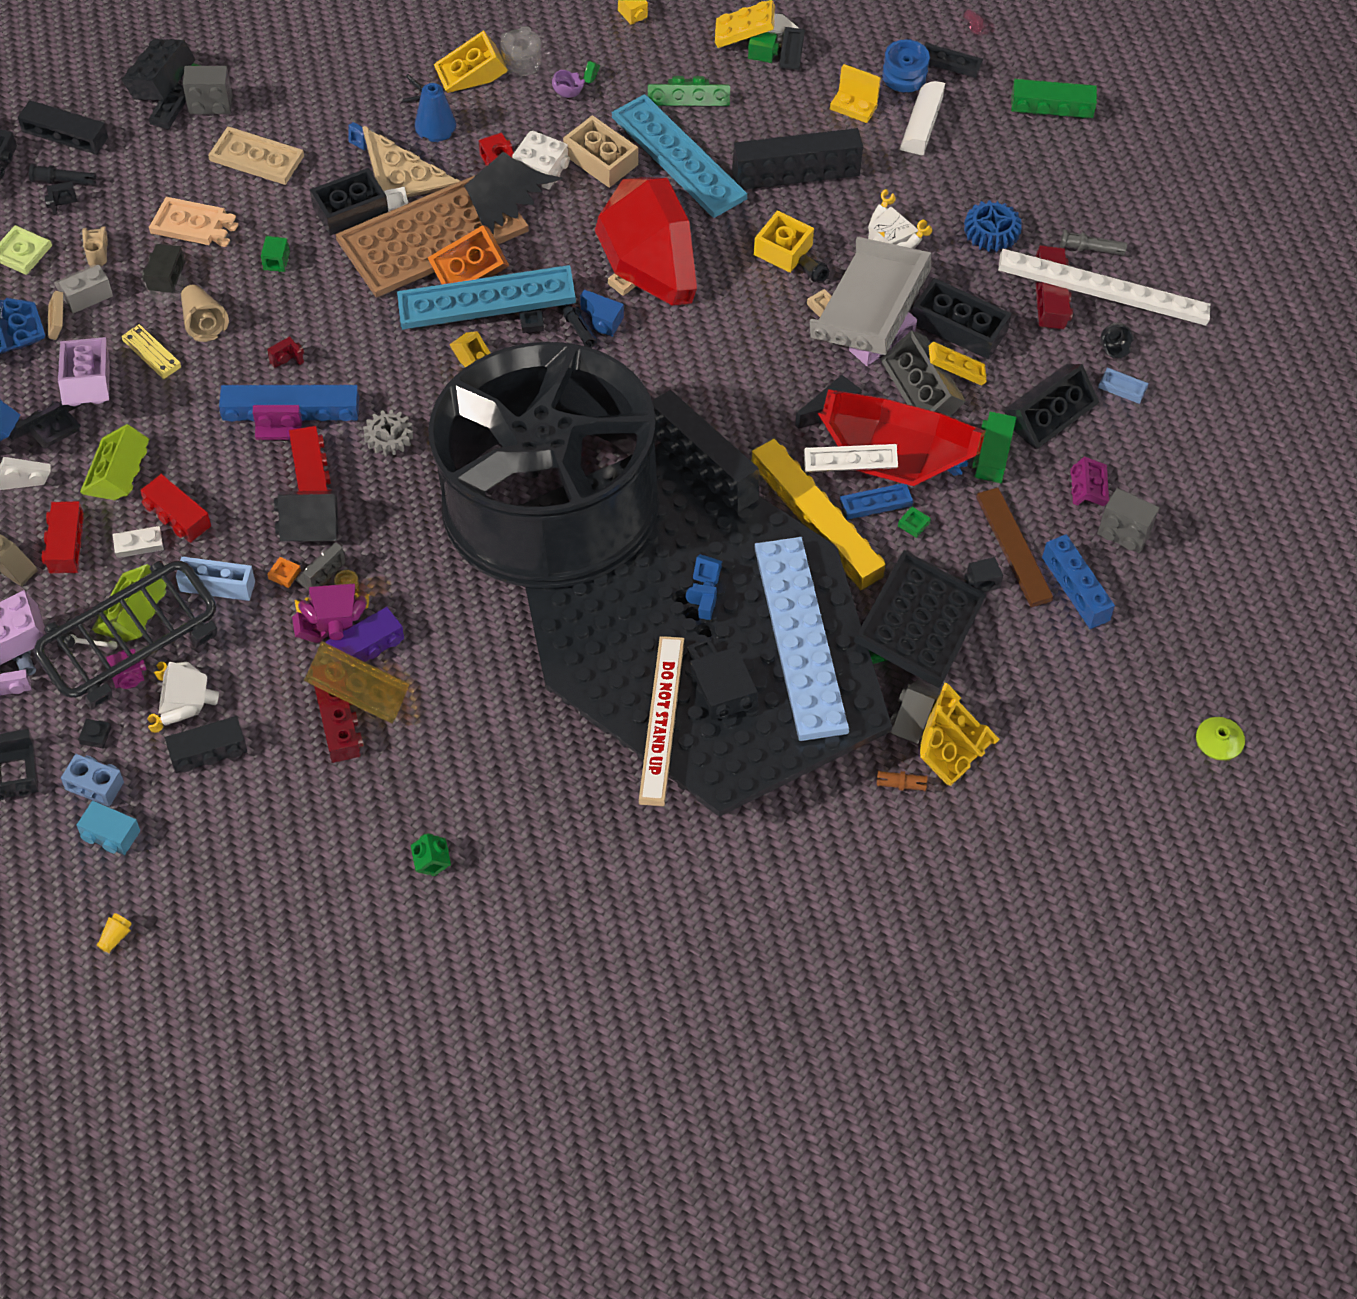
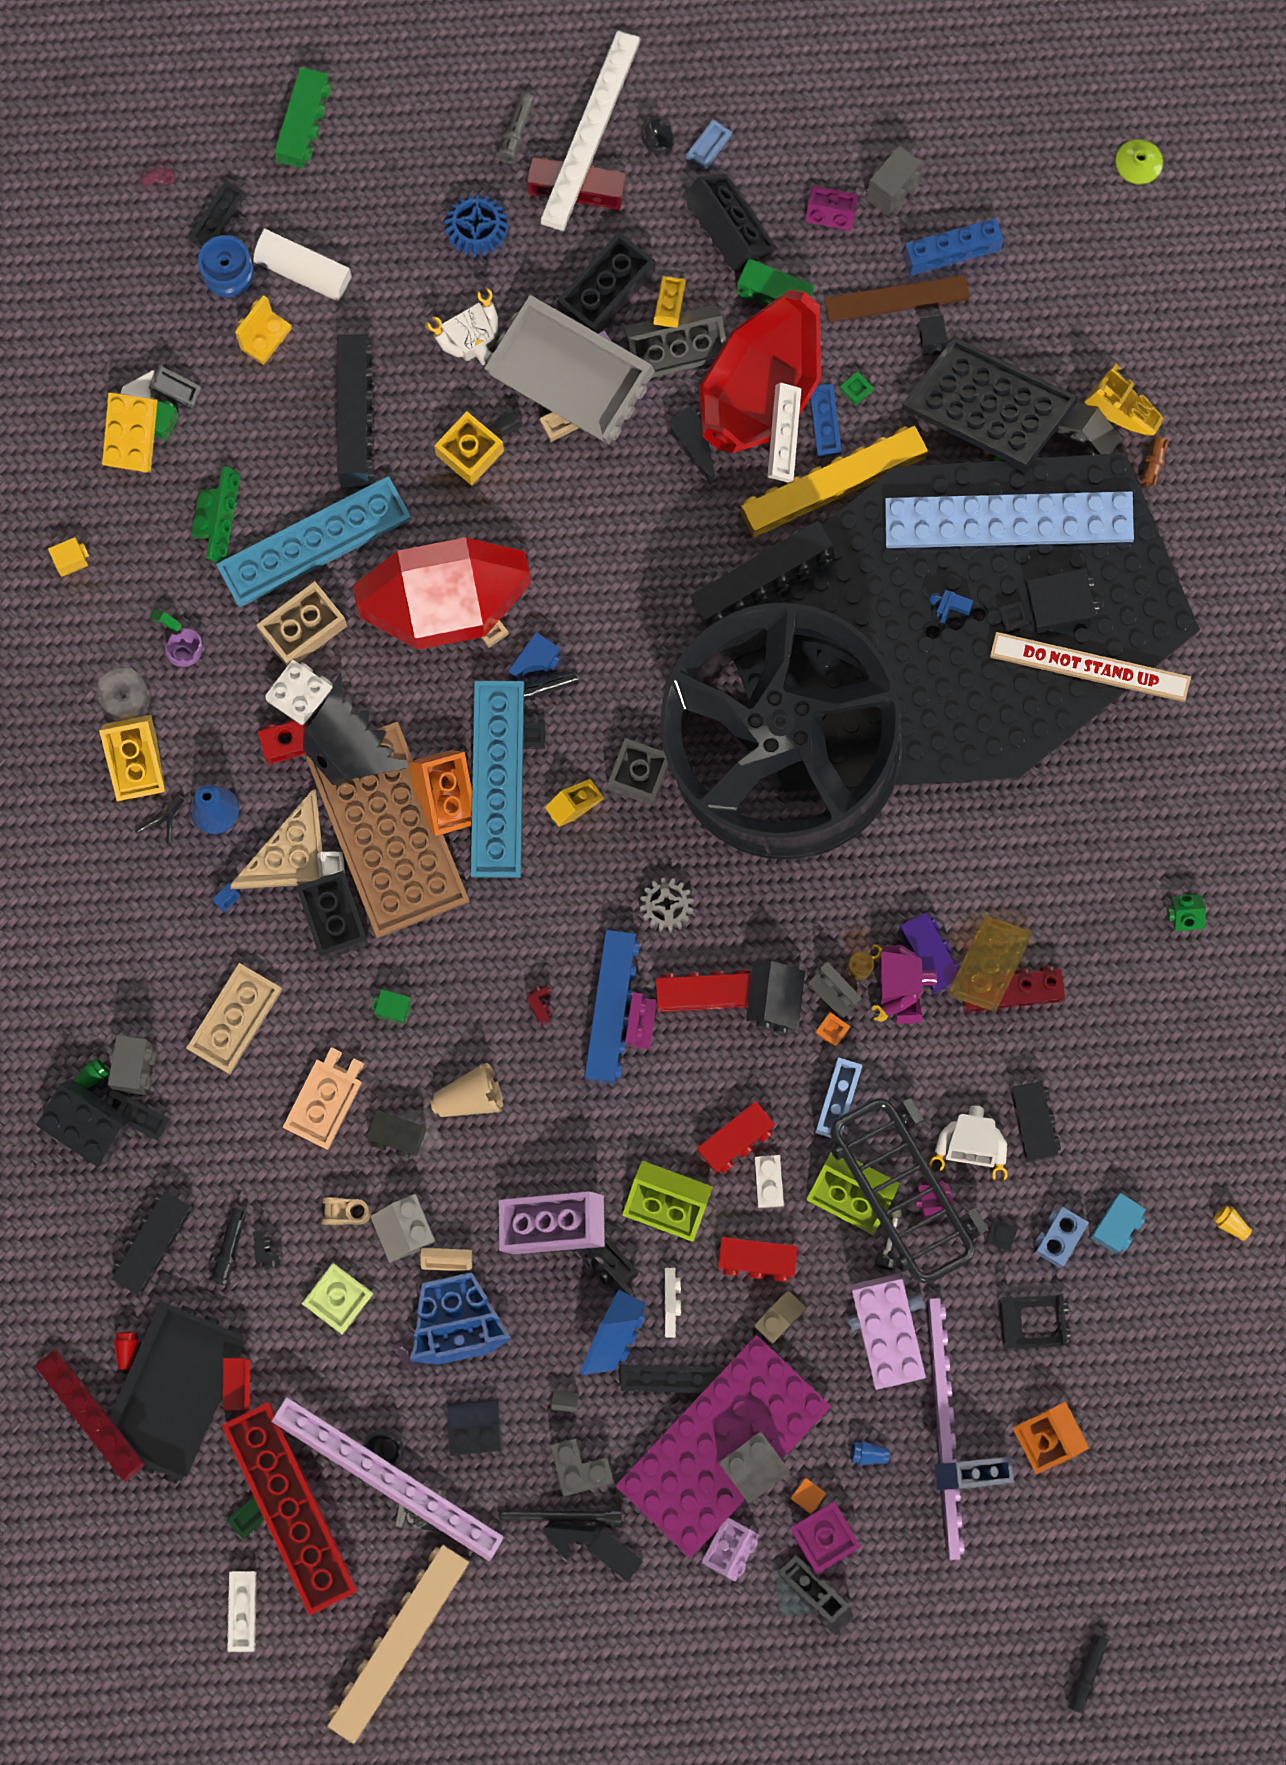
camera: 80 degrees left, 20 degrees up
(151, 351) = (510, 1155): light yellow tile -> none
(707, 569) = (914, 596): blue tile -> none

